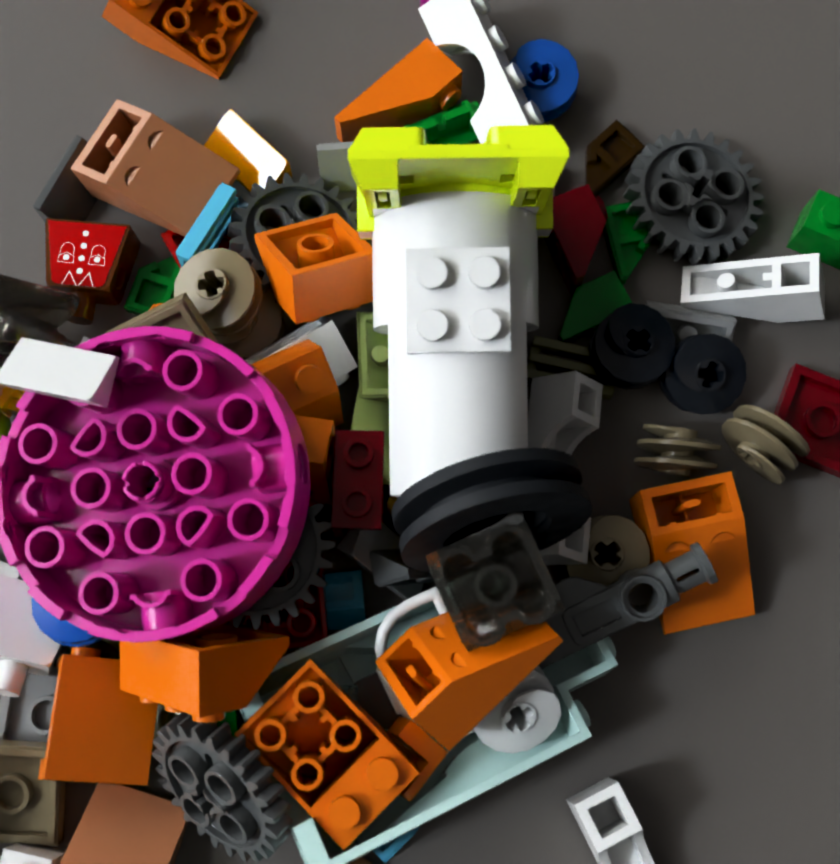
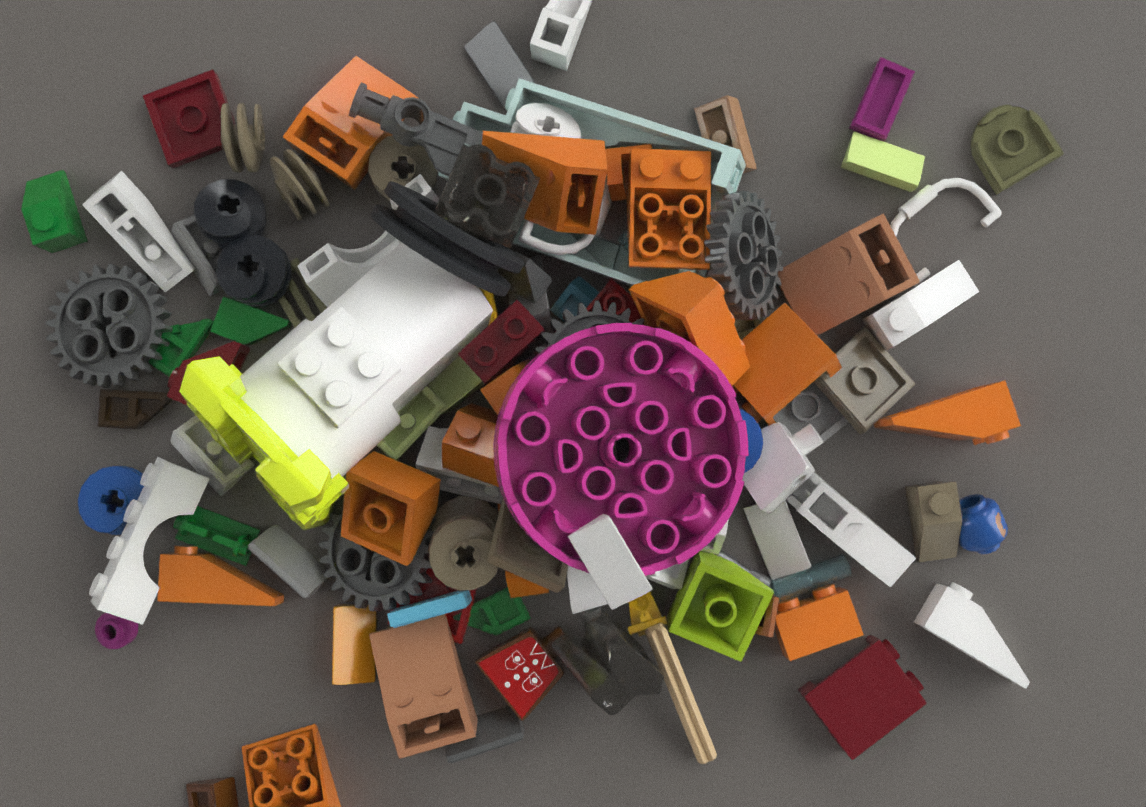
camera: 130 degrees left, 10 degrees up
(630, 740) = (497, 61): none -> slope

